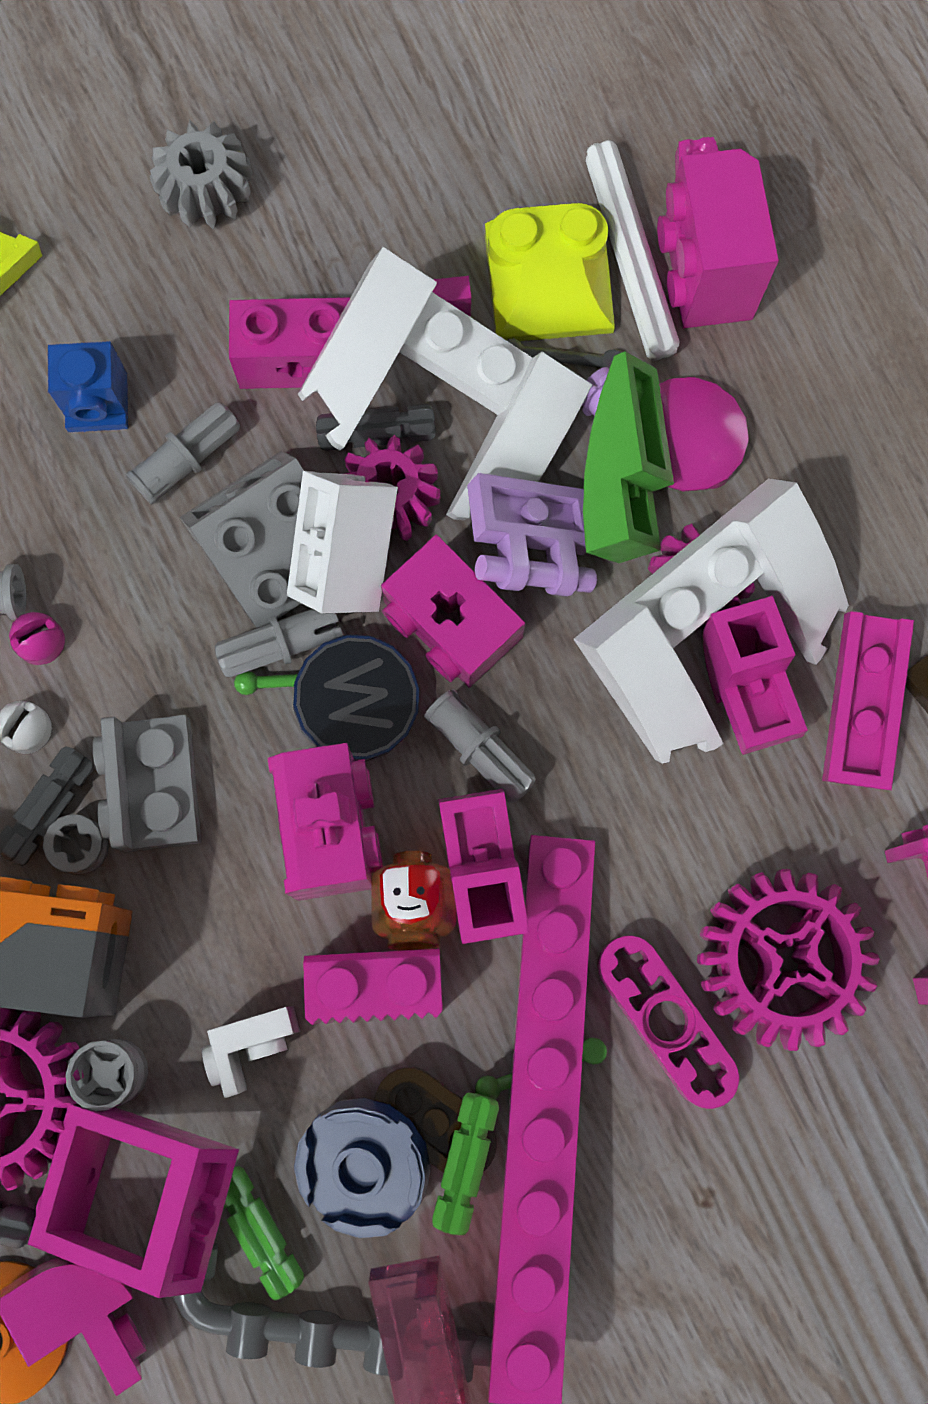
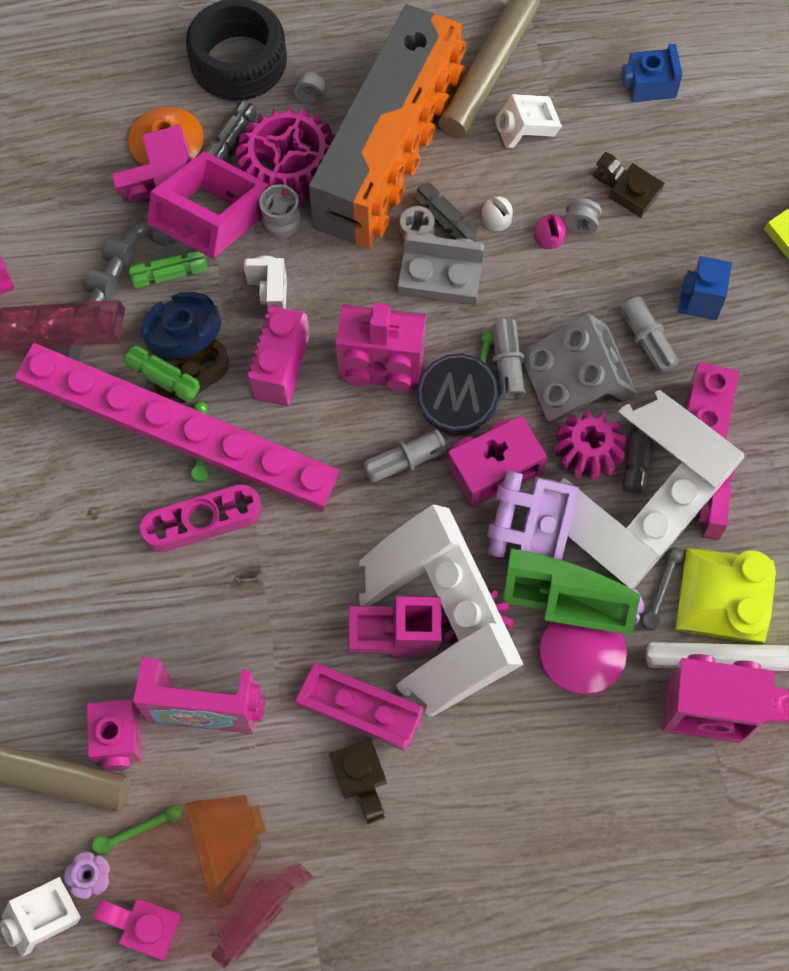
camera: 110 degrees right, 10 degrees down
(341, 542) = (555, 398): white hinge -> none
(412, 902) = (320, 389): head -> none
(483, 866) = (322, 434): dark pink brick -> none
(836, 991) = (198, 607): dark pink gear -> none

